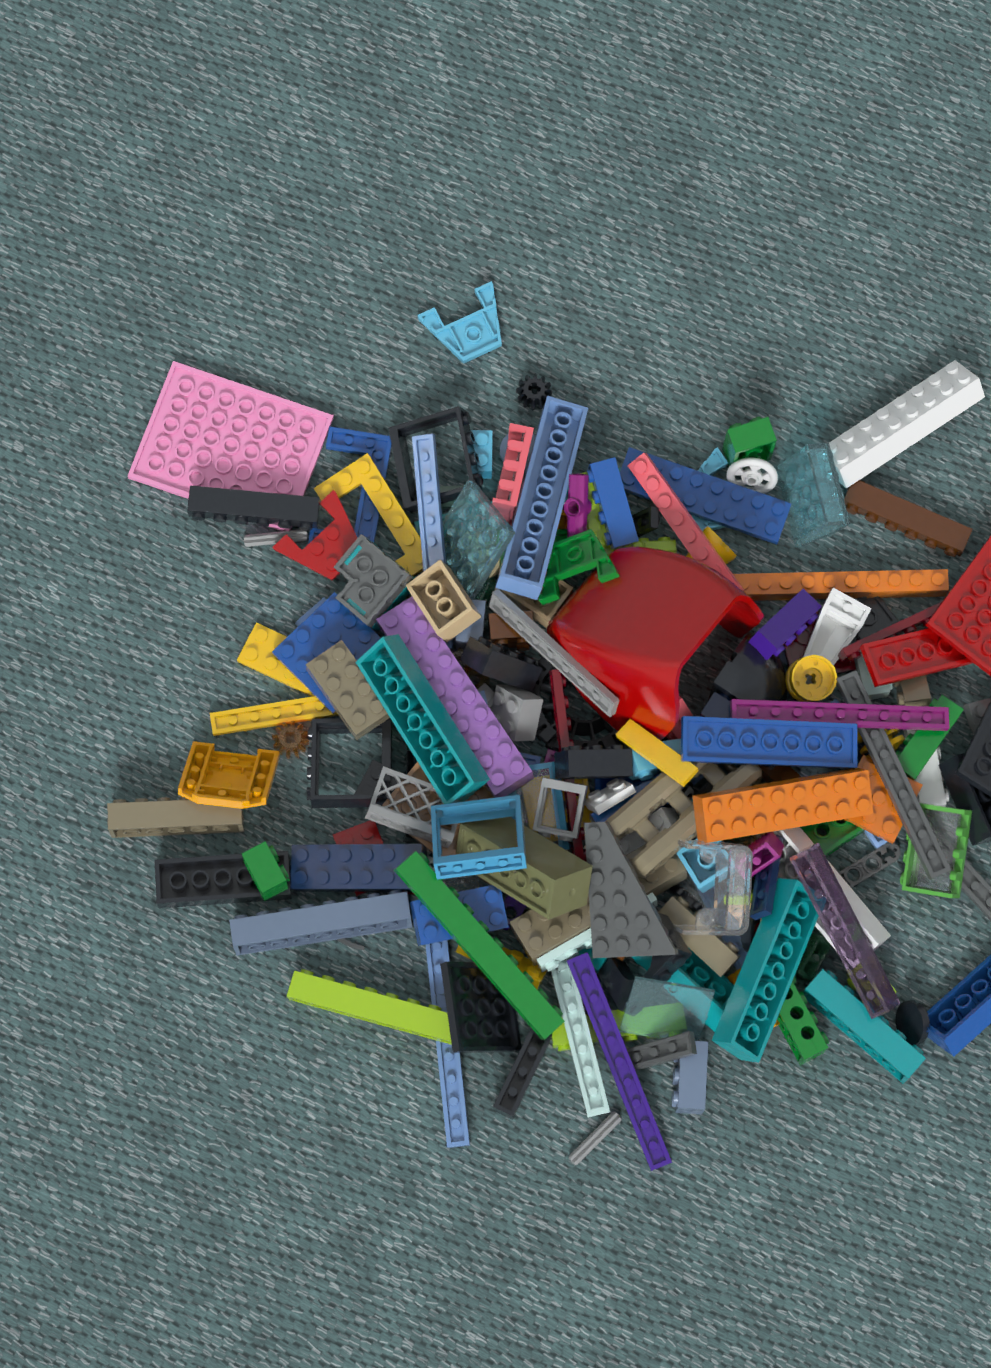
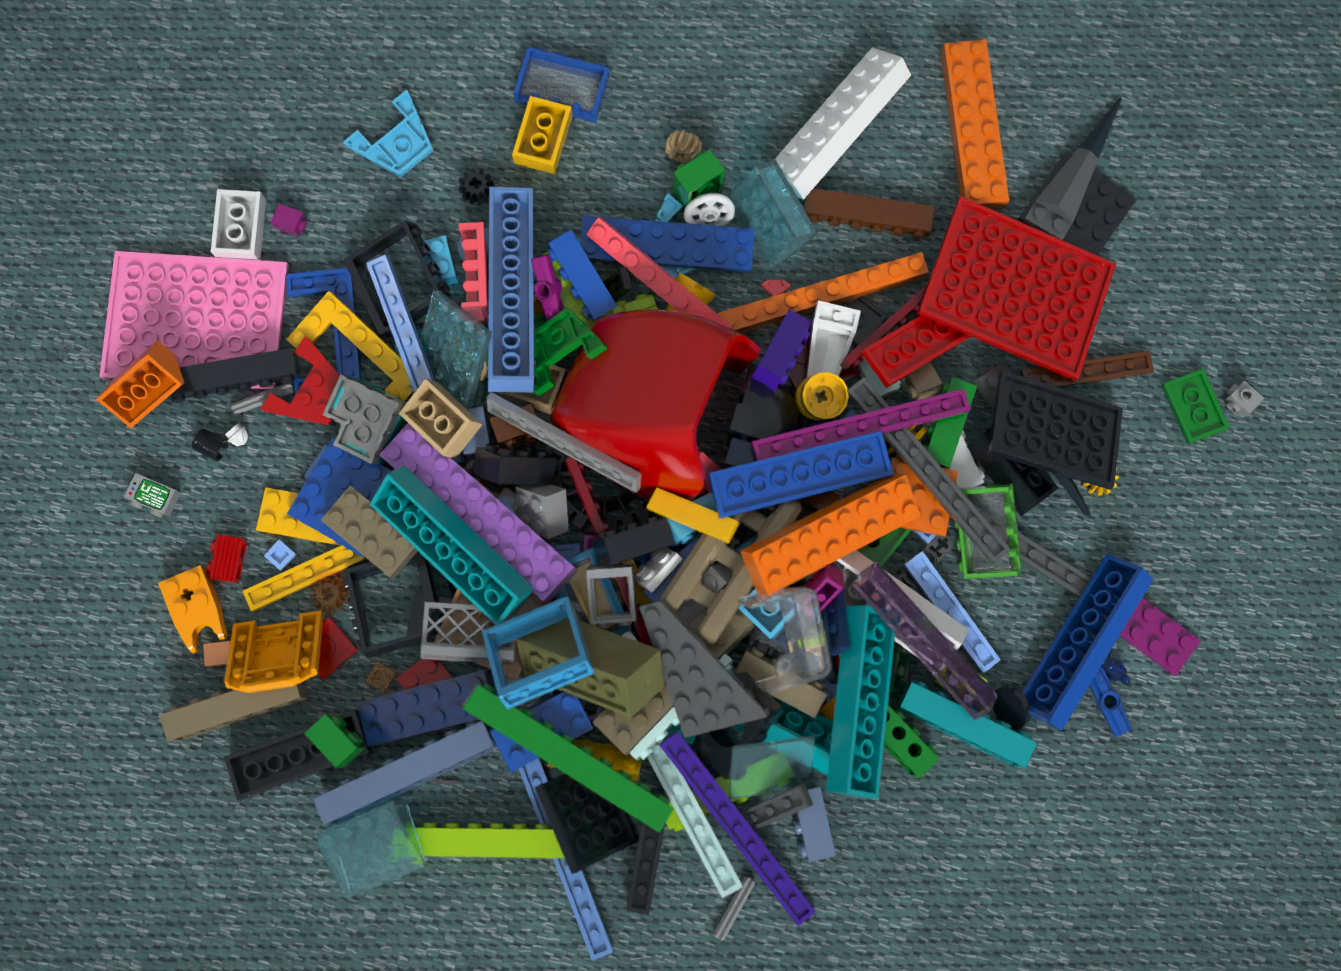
camera: 15 degrees left, 5 degrees up
(148, 601) = (152, 495): none -> brick
(162, 721) = (193, 614): none -> light orange brick
(169, 494) = (142, 384): none -> orange slope
(171, 765) = (216, 654): none -> nougat brick
(203, 679) = (227, 559): none -> red brick
(214, 567) = (209, 444): none -> black piece
(243, 566) = (237, 435): none -> white plate
(253, 689) = (280, 555): none -> light blue plate
(270, 983) = (372, 848): none -> clear light blue slope
(282, 793) = (334, 648): none -> red tile
(297, 367) = (238, 224): none -> white brick
(318, 829) = (381, 677): none -> clear orange plate
(346, 376) = (289, 220): none -> magenta brick
(611, 359) = (542, 135): none -> yellow brick
(643, 315) = (562, 81): none -> window
(744, 406) = (682, 146): none -> tan gear
(797, 564) = (775, 287): none -> coral tile
(874, 898) = (942, 597): none -> light blue plate

